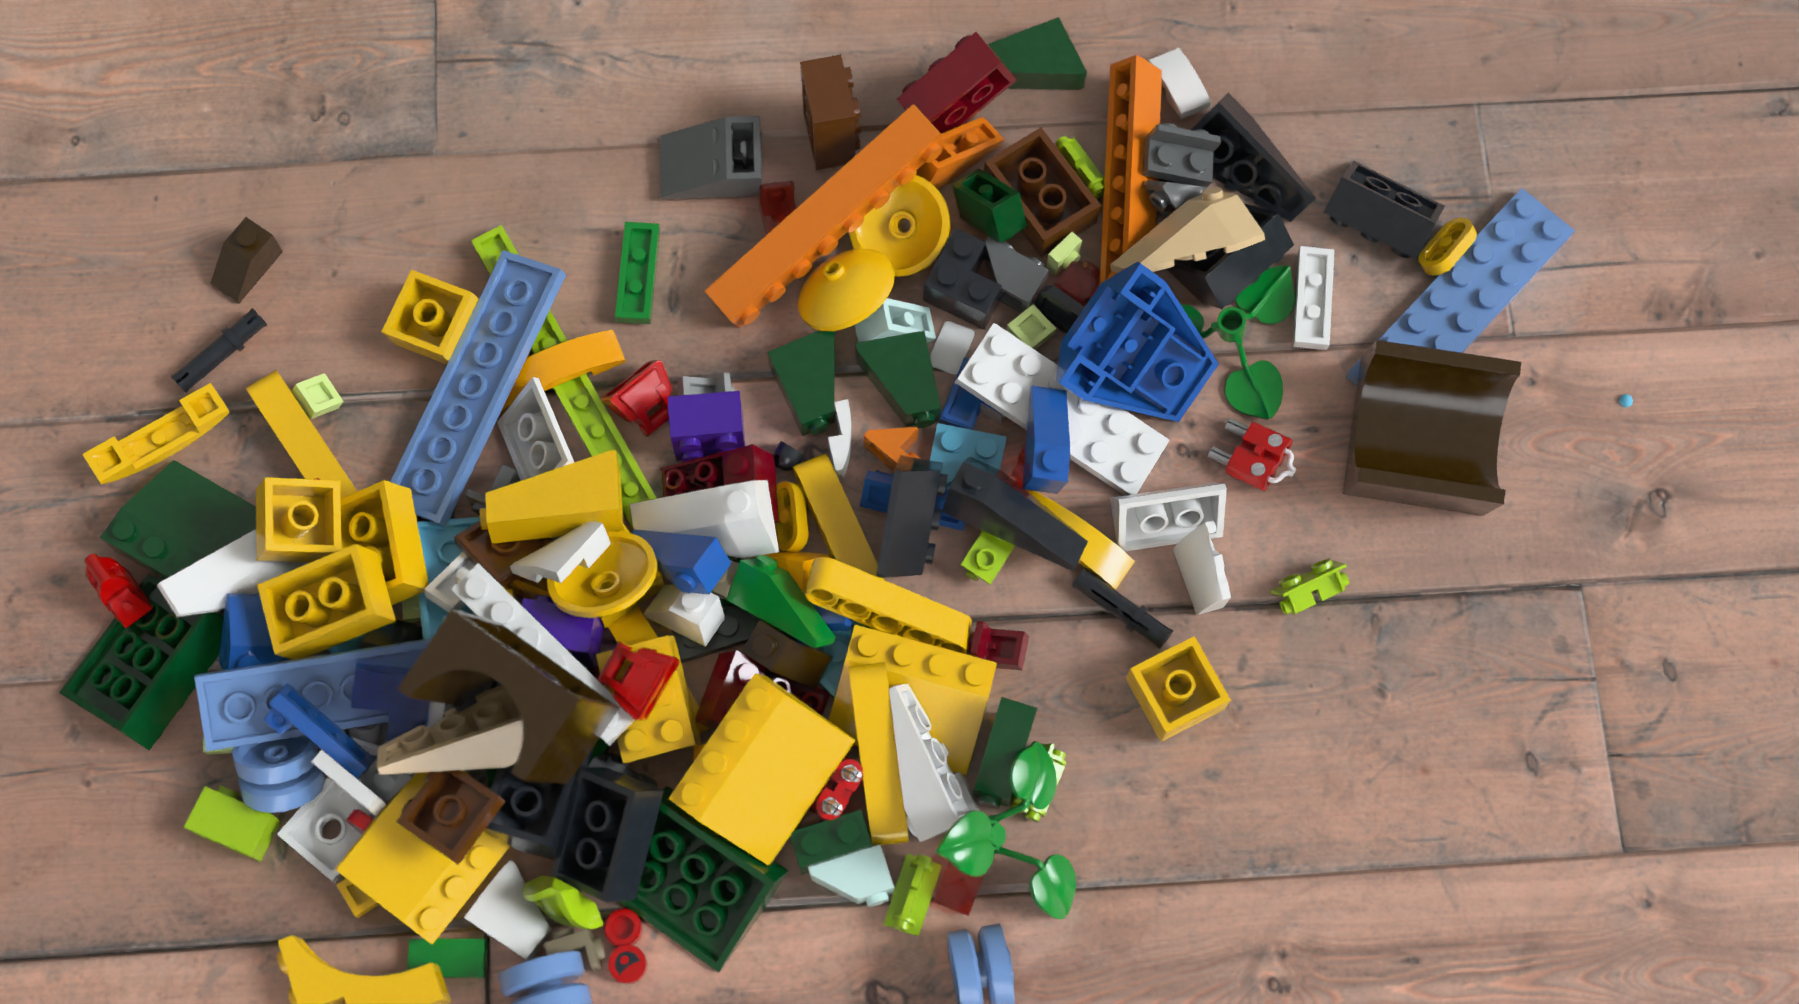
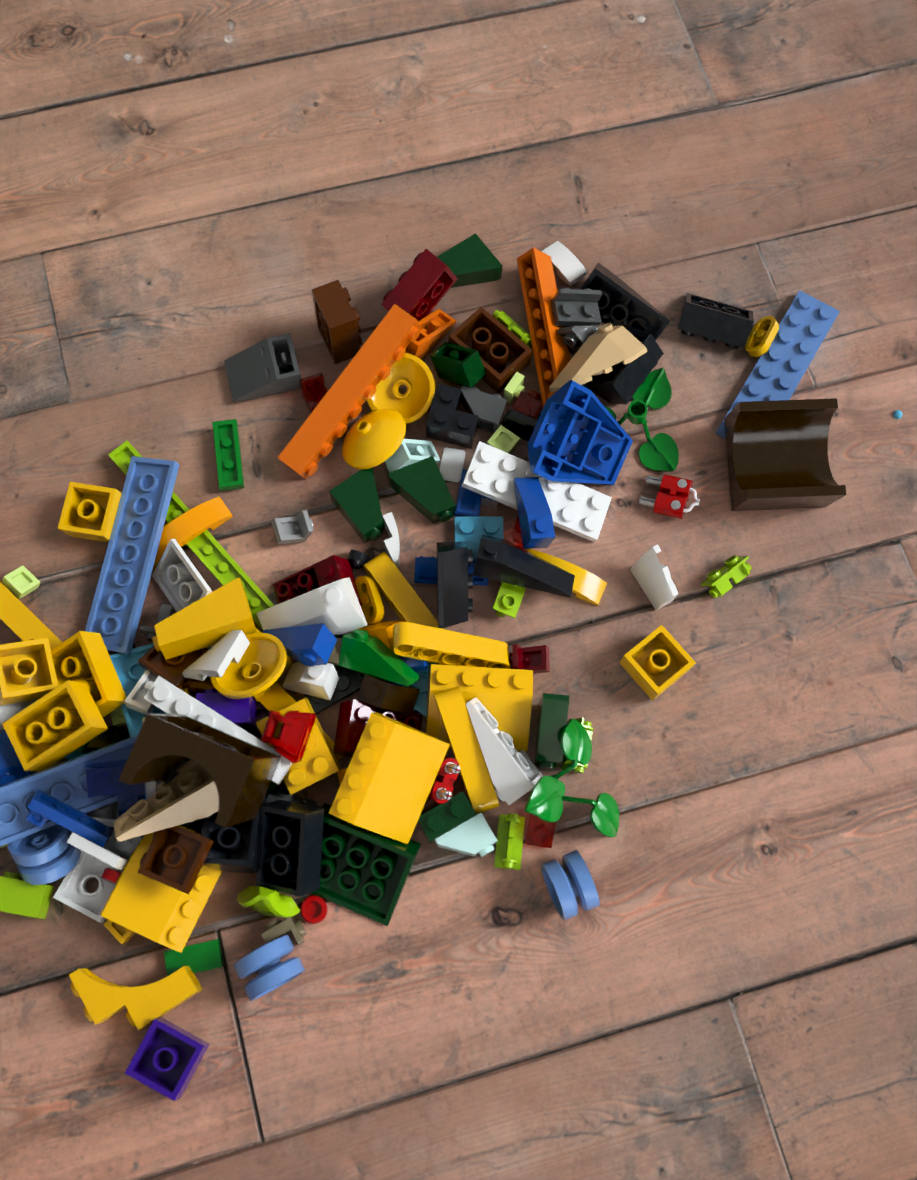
camera: 15 degrees left, 0 degrees up
(509, 916) = (231, 919): white slope -> none
(627, 964) = (322, 934): red tile -> none
(640, 393) = (248, 535): red piece -> none
(705, 424) = (298, 547): dark purple brick -> none
(890, 444) = (426, 537): orange slope -> none
(1122, 608) = (607, 616): black pin -> none
(1167, 515) = (622, 547): white slope -> none
(1313, 298) = (683, 386): white plate -> none

